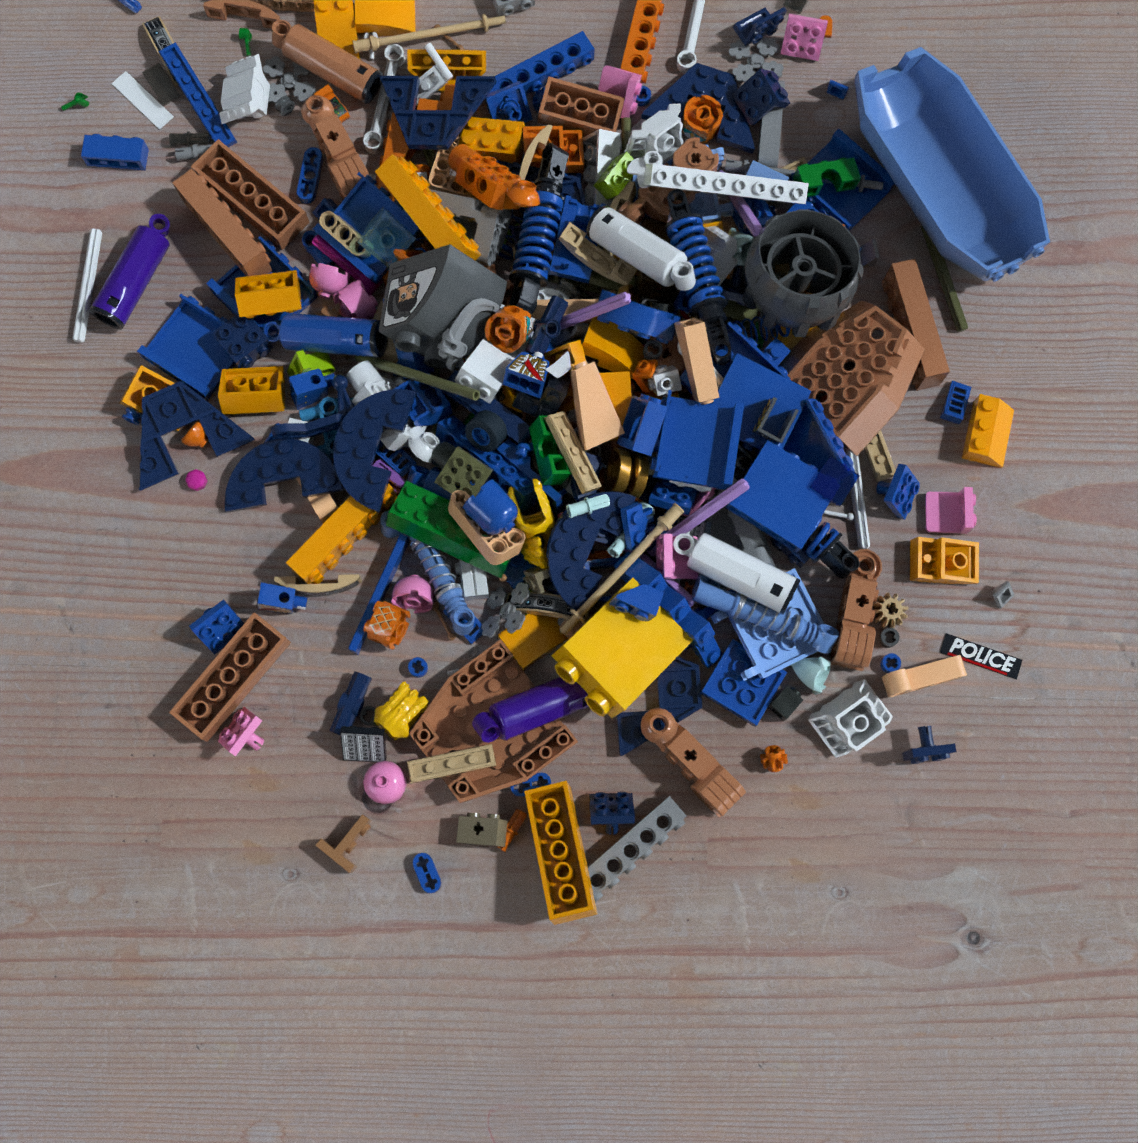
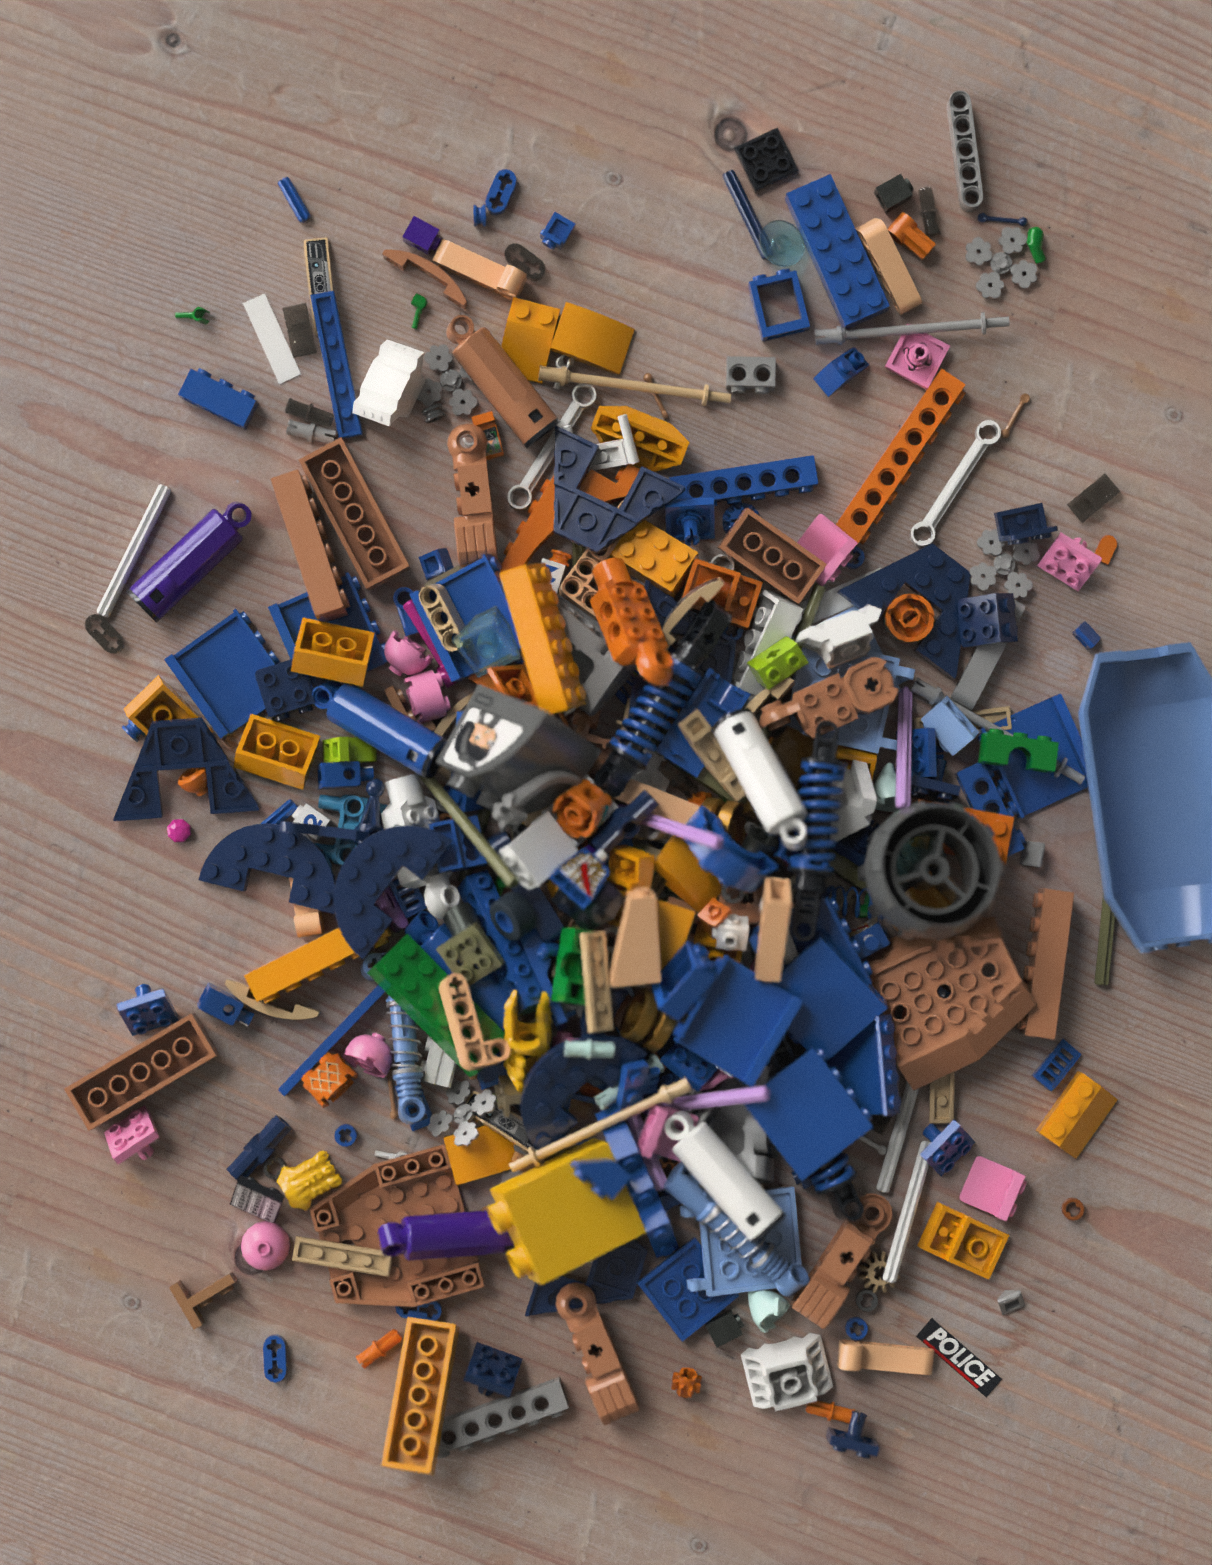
camera: 20 degrees right, 10 degrees up
(87, 350) = (108, 630): none -> clear smoke beam
(307, 167) = (428, 501): blue beam -> none
(492, 509) = (484, 1017): blue cylinder -> none
(492, 835) = (335, 1338): dark tan brick -> none
(561, 366) = (619, 883): white sticker -> none
(638, 165) = (810, 679): white plate -> none
(725, 184) = (891, 731): white brick -> none
(763, 417) = (839, 1040): dark grey piece -> none
(834, 481) = (868, 1121): clear blue piece -> none
(893, 556) = (906, 1217): none -> white axle
(898, 737) = (830, 1411): none -> orange axle
(1020, 499) = (1078, 1203): none -> dark orange bush

